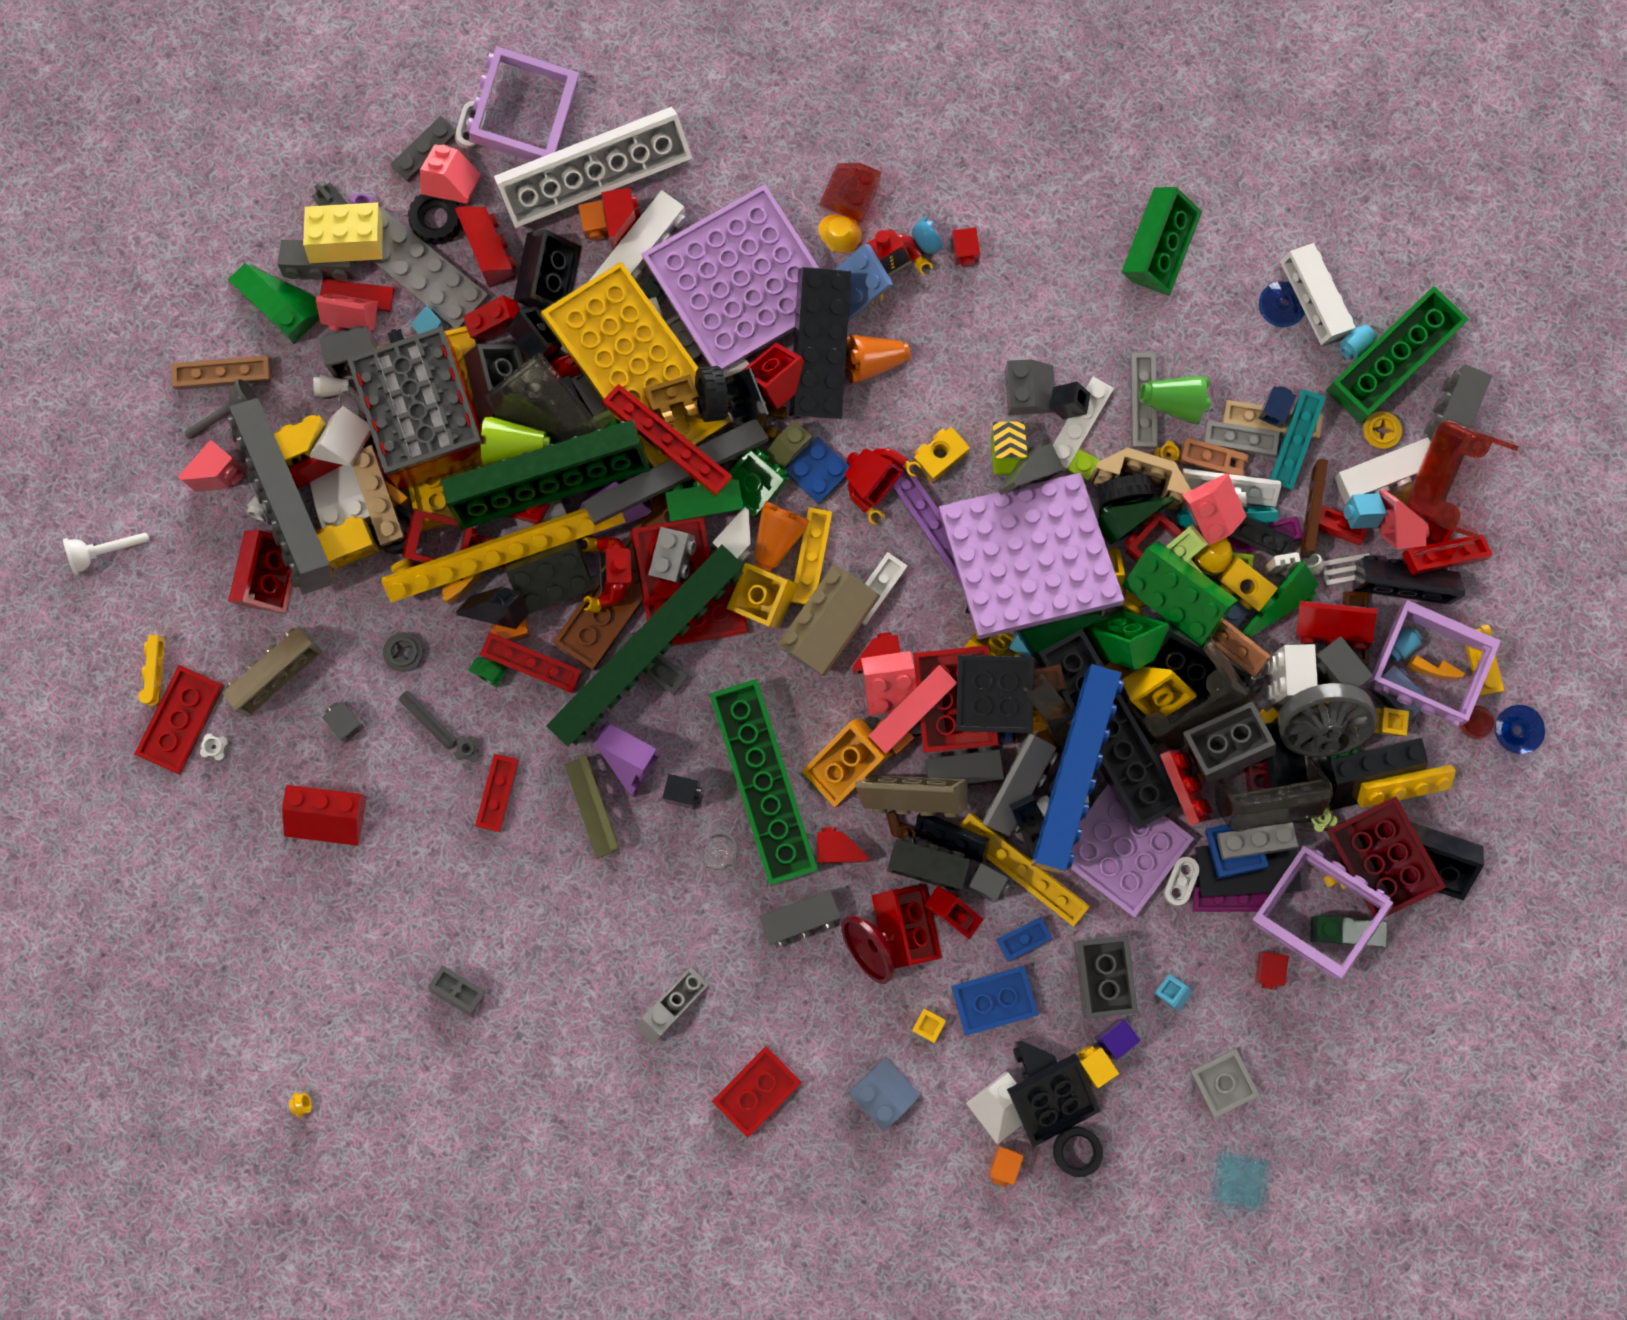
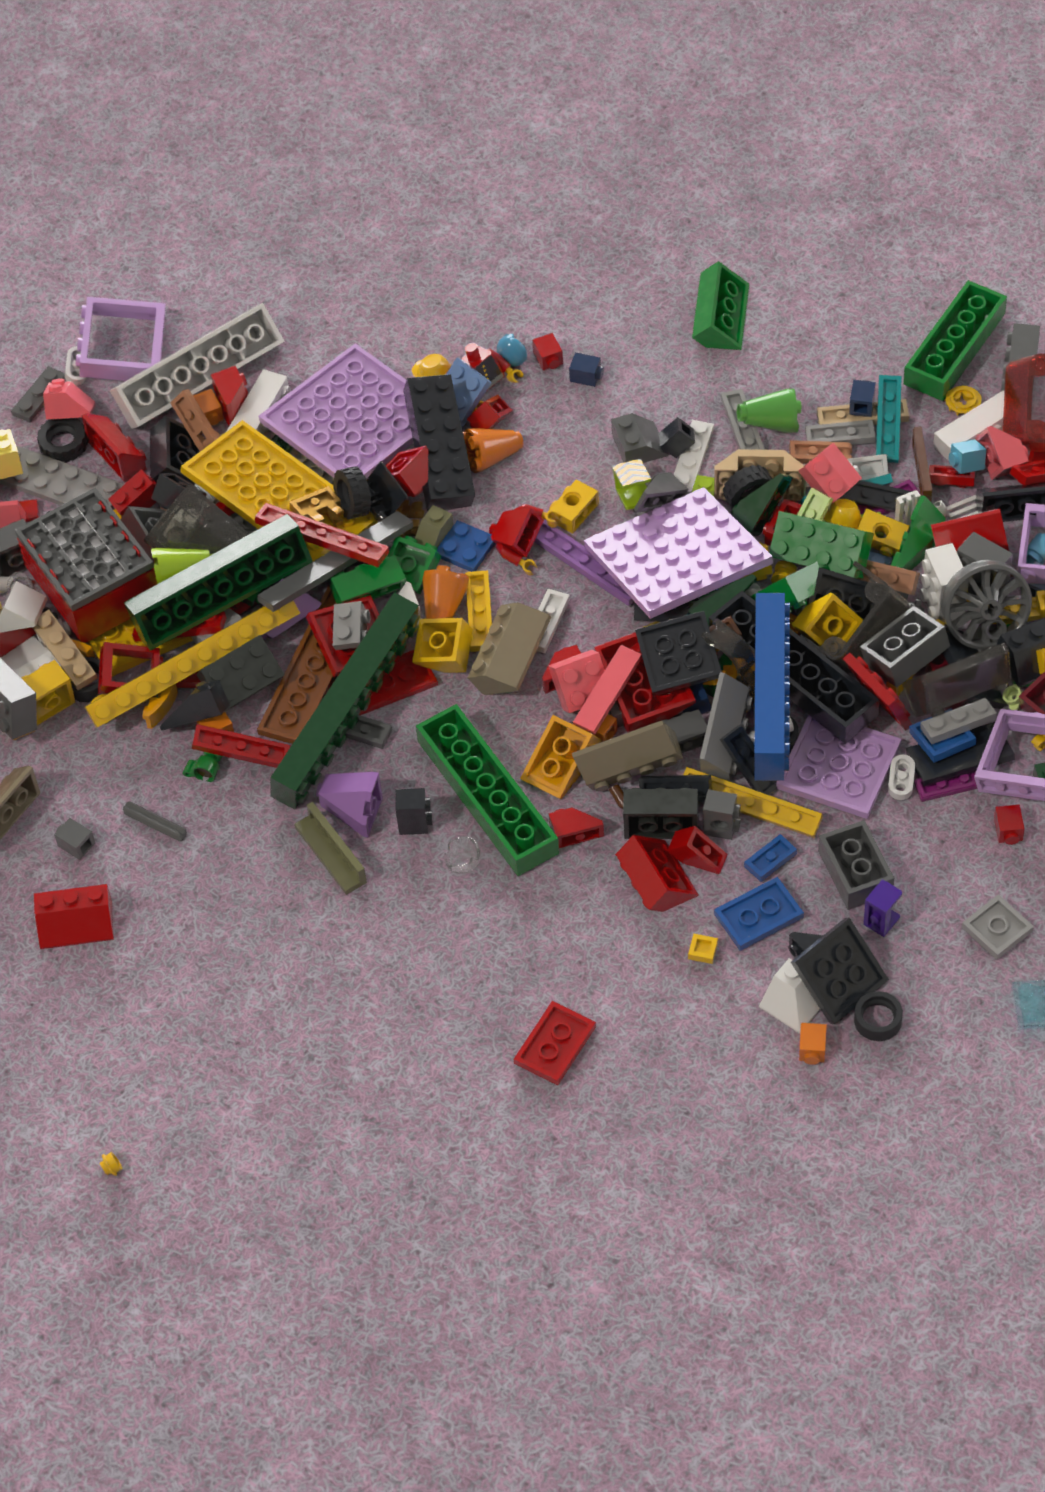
camera: 10 degrees left, 25 degrees down
(391, 650) = (117, 764): dark grey gear -> none
(456, 991) = (240, 1029): dark grey hinge -> none
(472, 754) = (201, 839): dark grey plate -> none
(497, 793) = (236, 862): red plate -> none
(575, 239) = (194, 419): none -> nougat plate
(614, 571) = (300, 654): red torso -> none
(671, 1006) = (449, 994): light grey slope -> none
(800, 918) = (553, 890): dark grey brick -> none
(851, 190) = (434, 334): clear red slope -> none
(869, 948) = (624, 889): dark red dish -> none
(884, 313) = (489, 413): none -> red slope
(884, 1094) = (675, 1016): sand blue slope -> none
(999, 281) = (585, 369): none -> dark blue brick
(1096, 1066) = (874, 931): yellow brick -> none
(1173, 992) = (926, 868): medium azure slope -> none
(1272, 308) = (843, 338): clear blue dish -> none
(1317, 294) = (870, 314): white brick -> none
(1357, 342) = (915, 339): medium azure brick -> none

